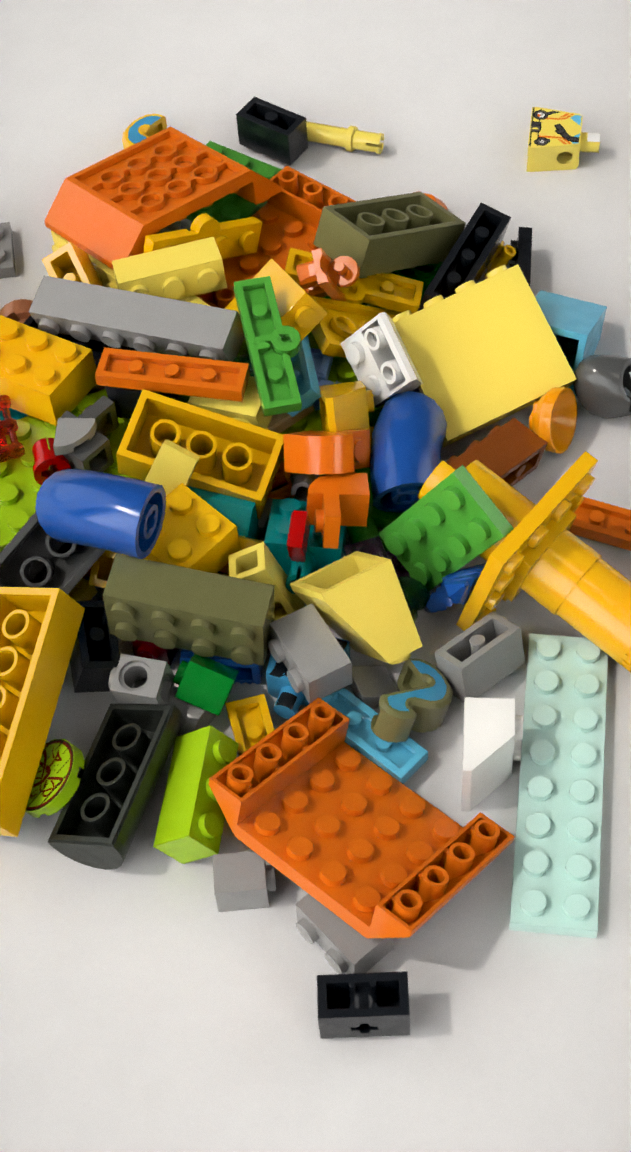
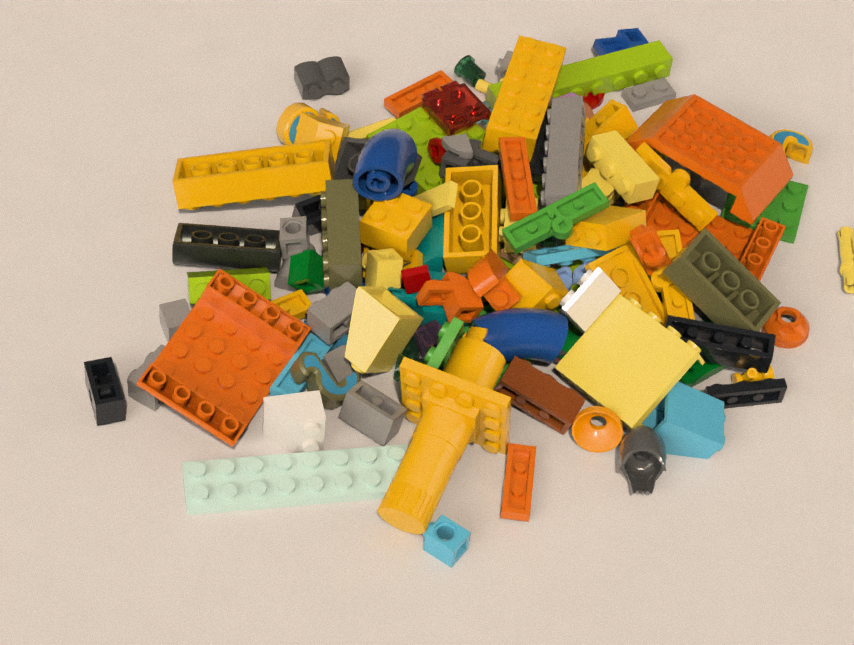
camera: 65 degrees right, 5 degrees down
(55, 778) = (227, 213): lime tile -> none
(272, 130) = (827, 215): black brick -> none

